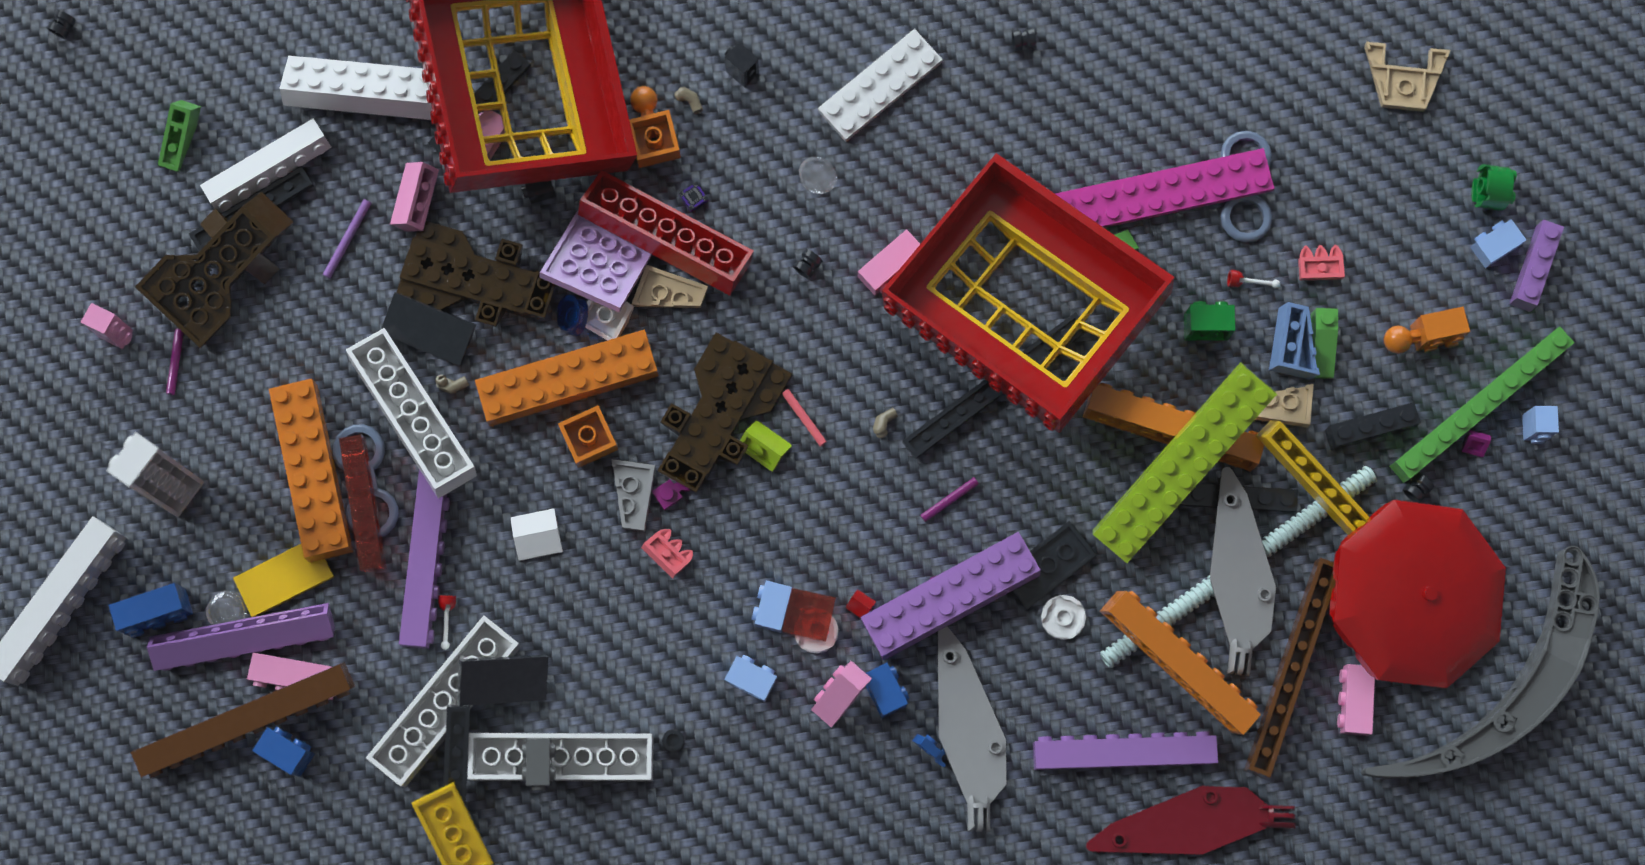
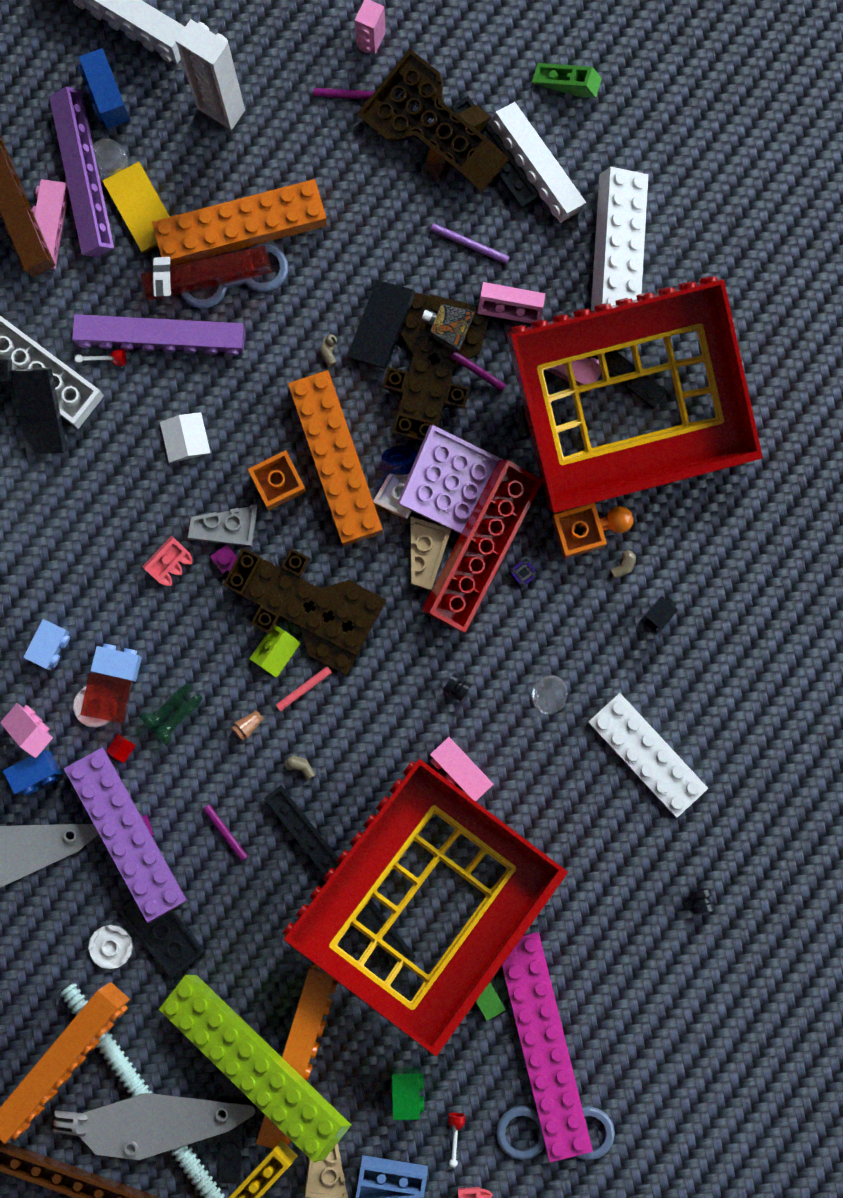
camera: 90 degrees right, 5 degrees up
(365, 546) = (161, 276): none -> white sticker
(411, 413) = (293, 311): white brick -> none
(436, 255) = (448, 325): none -> torso
(478, 238) = (477, 370): none -> magenta bar
(821, 537) = (175, 701): none -> clear green piece
(841, 475) = (245, 726): none -> nougat cone

